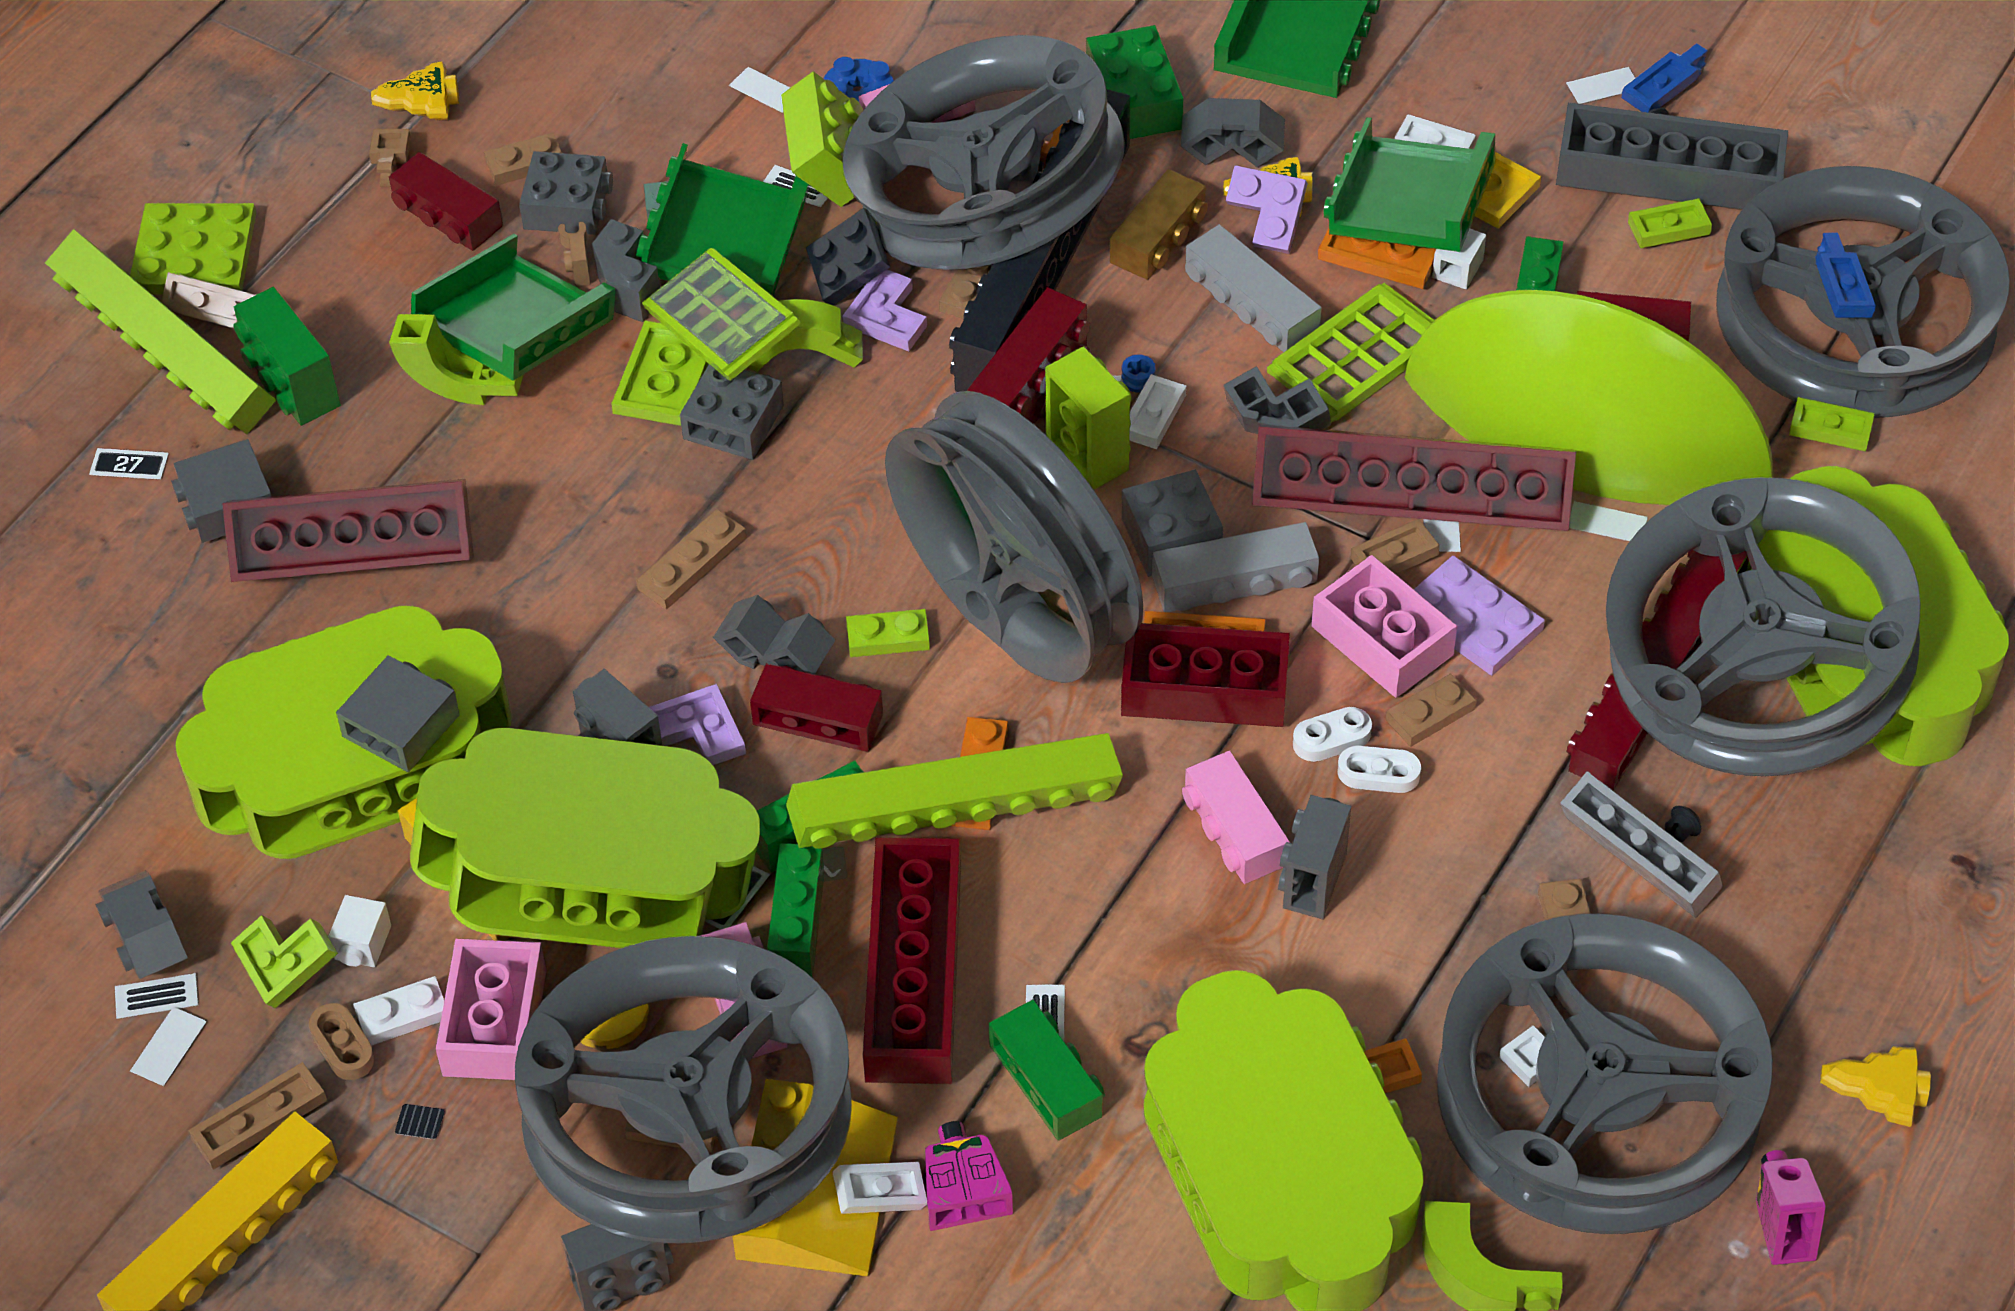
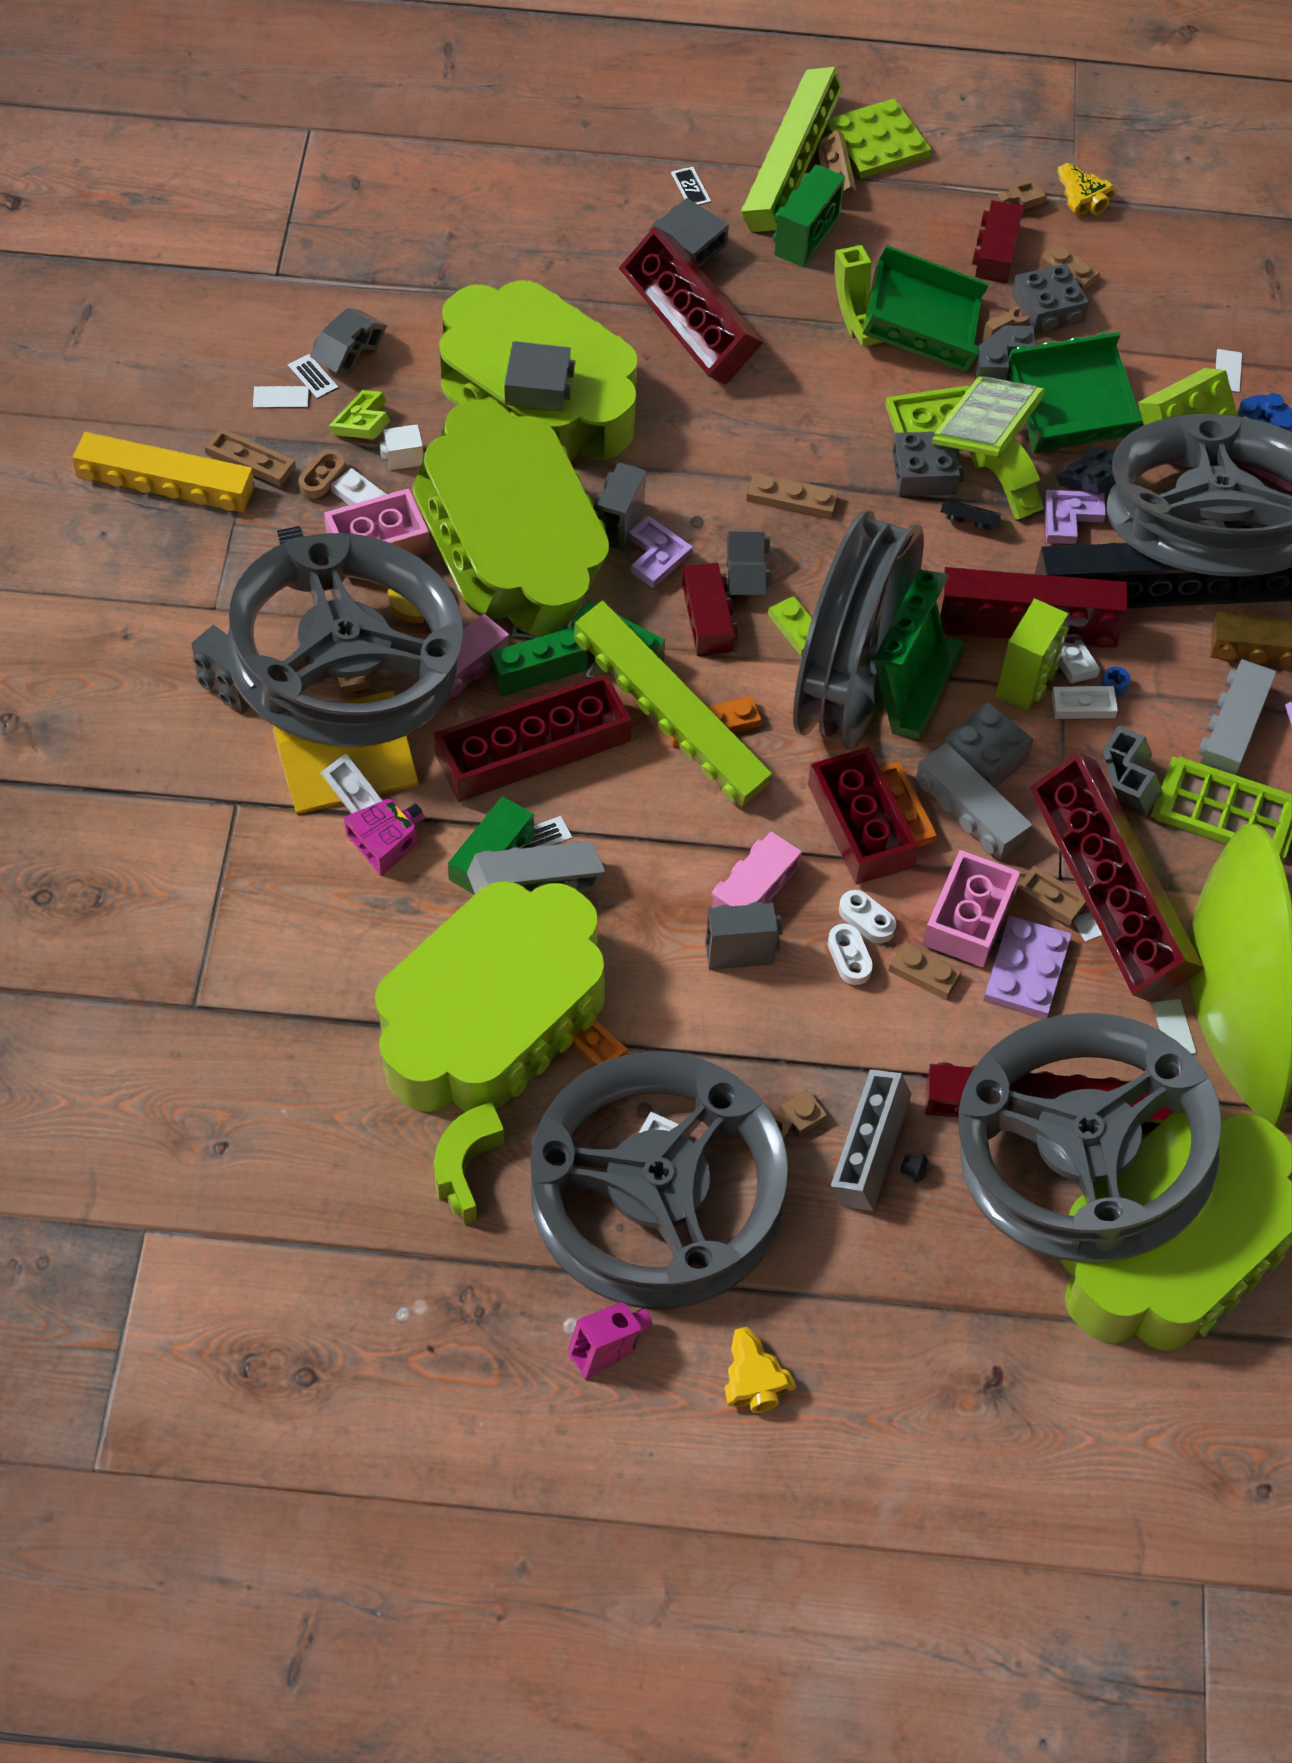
camera: 60 degrees right, 5 degrees up
(840, 391) = (983, 517): none -> black plate
(1121, 1030) = (567, 864): none -> light grey brick

